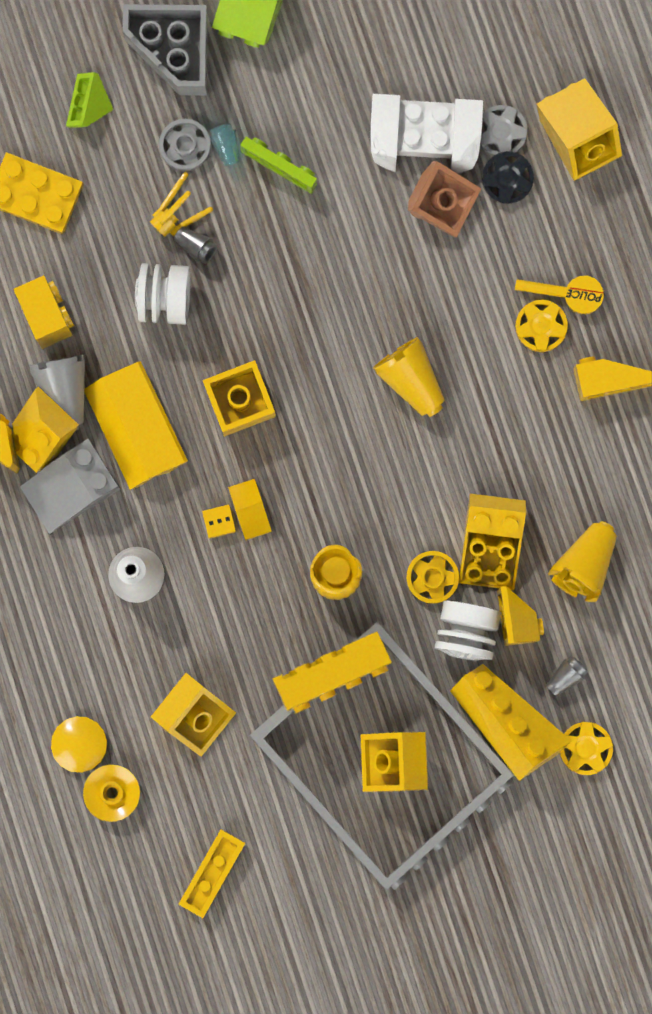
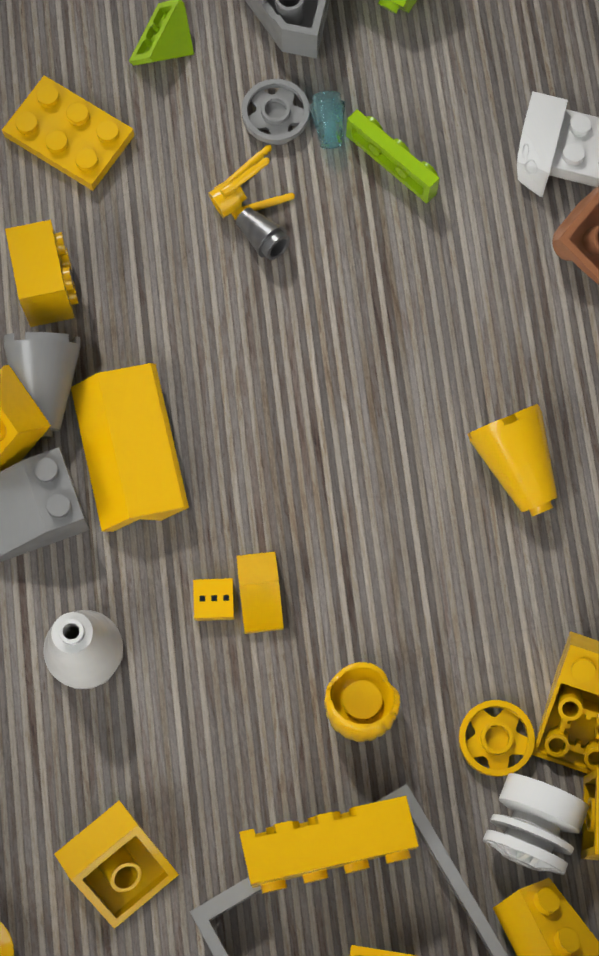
camera: 10 degrees right, 10 degrees down
(163, 293) = (198, 280): white wheel -> none
(239, 398) = (277, 437): yellow brick -> none

